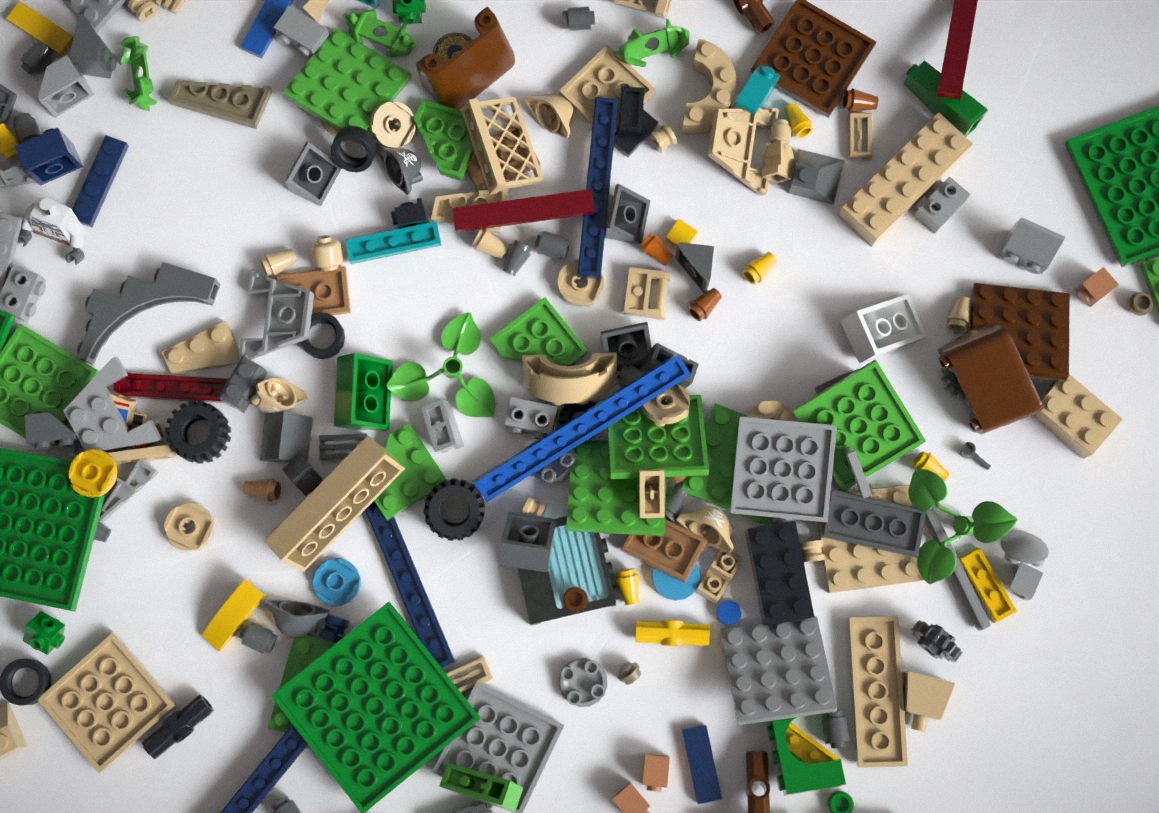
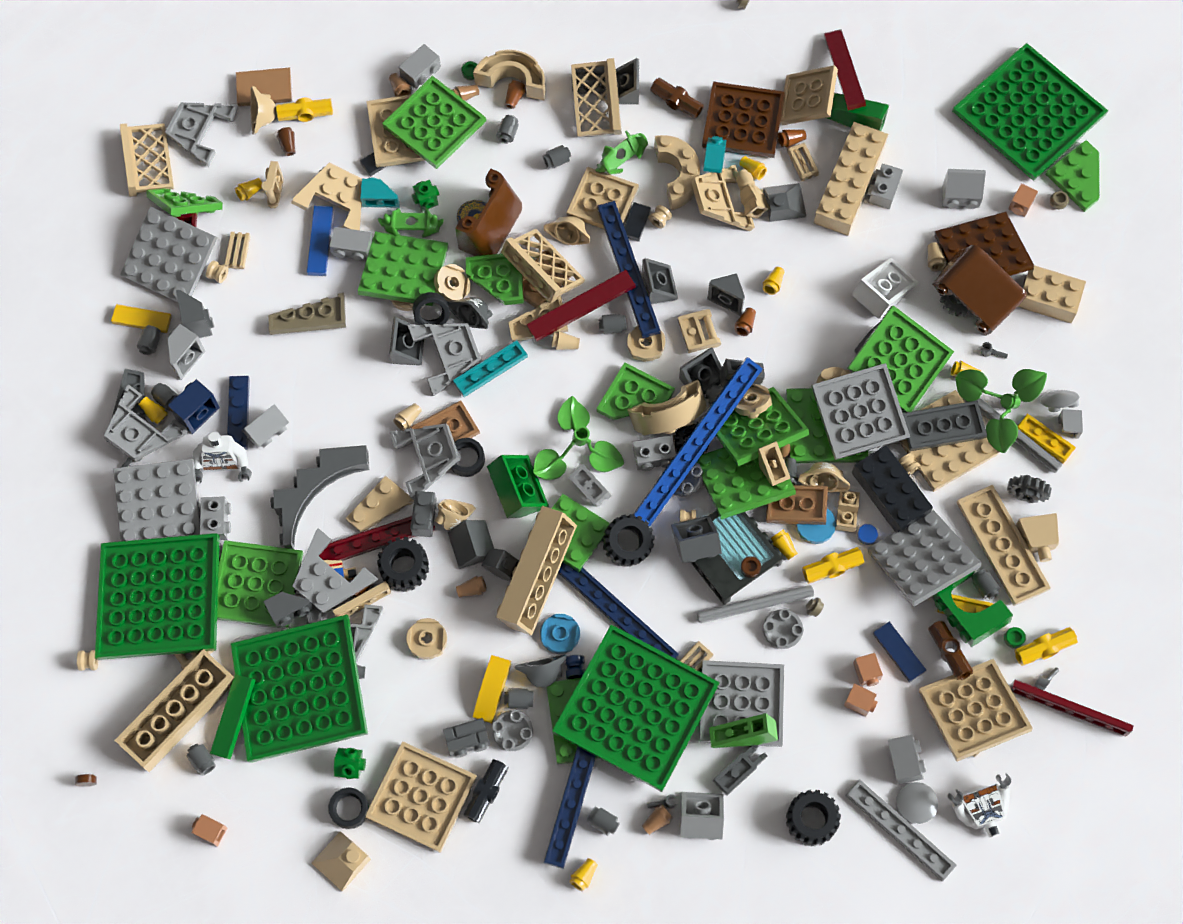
camera: 25 degrees left, 10 degrees down
(92, 473) = (337, 622): yellow tile -> none
(117, 211) = (265, 426): none -> light grey brick
(135, 54) = (227, 308): bright green piece -> none
(182, 657) = (466, 738): none -> dark grey brick
(236, 670) = (512, 730): none -> light grey dish
(326, 253) = (443, 394): tan head -> none
(343, 437) = (501, 532): dark grey tile -> none
(363, 201) = (454, 347): none -> light grey wing
(409, 214) = (494, 342): black brick -> none
(516, 257) = (589, 342): dark grey cone -> none
(566, 640) = (755, 604): none -> light grey axle
(631, 110) = (628, 205): black tile -> none
(656, 249) = (691, 297): orange cone -> none
(681, 233) = (703, 278): yellow tile -> none
(857, 472) = (915, 392): light grey tile -> none
(901, 58) = (808, 95): none -> tan plate

